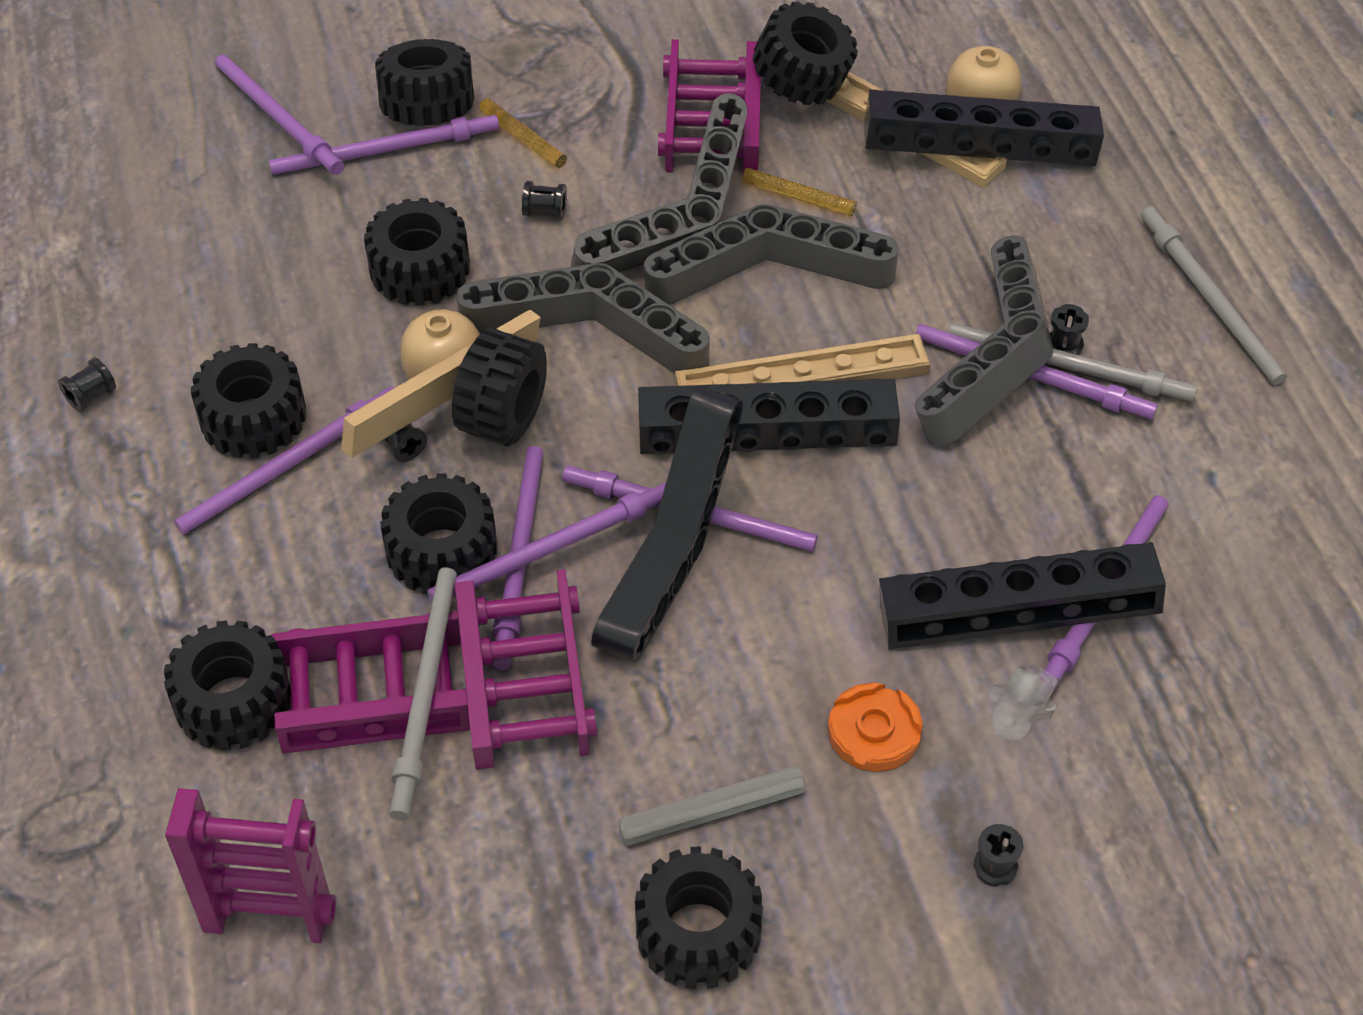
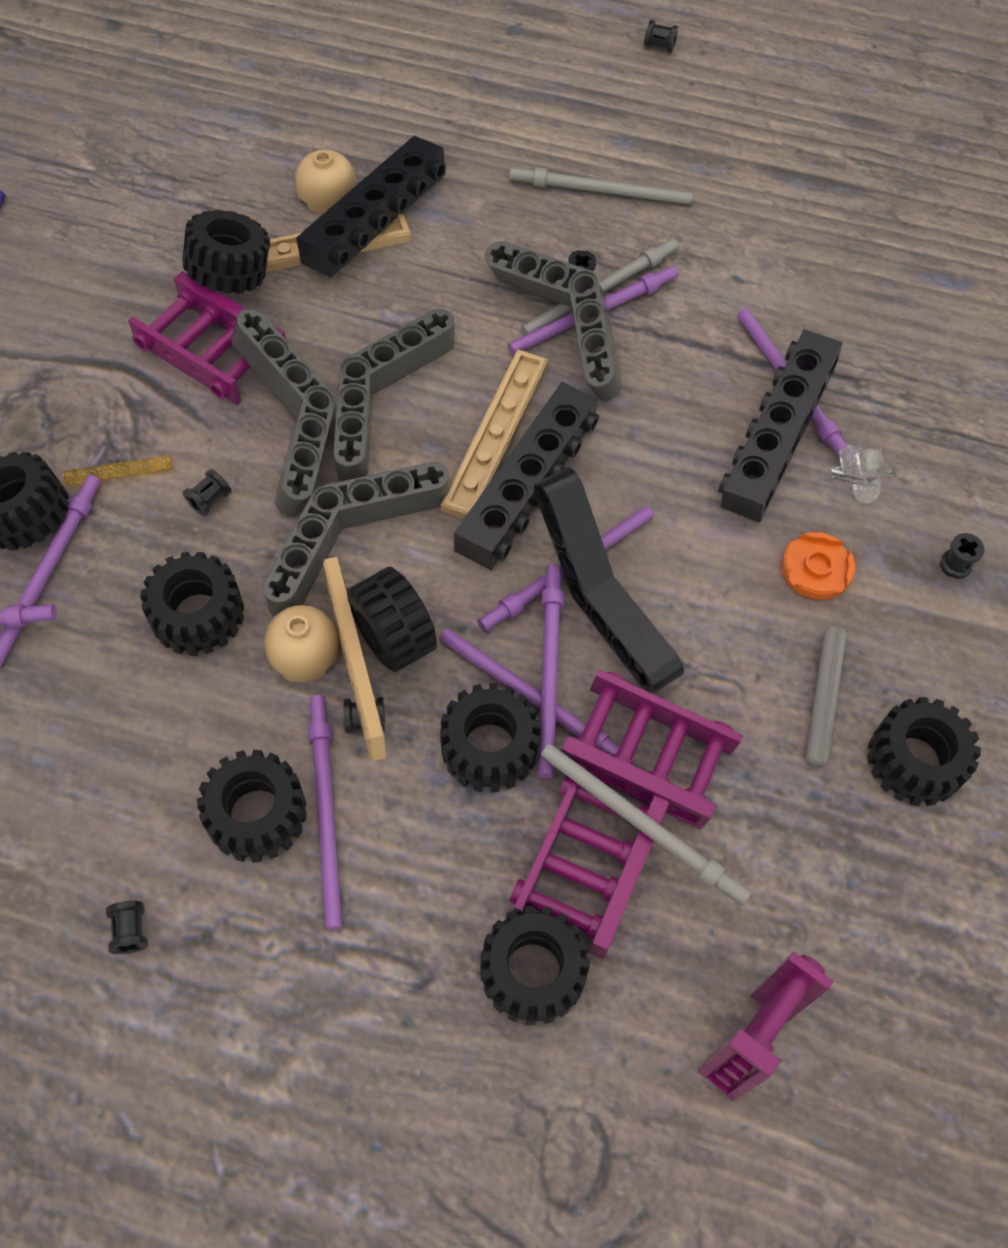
camera: 60 degrees left, 10 degrees up
(799, 191) = (336, 335): clear yellow bar -> none

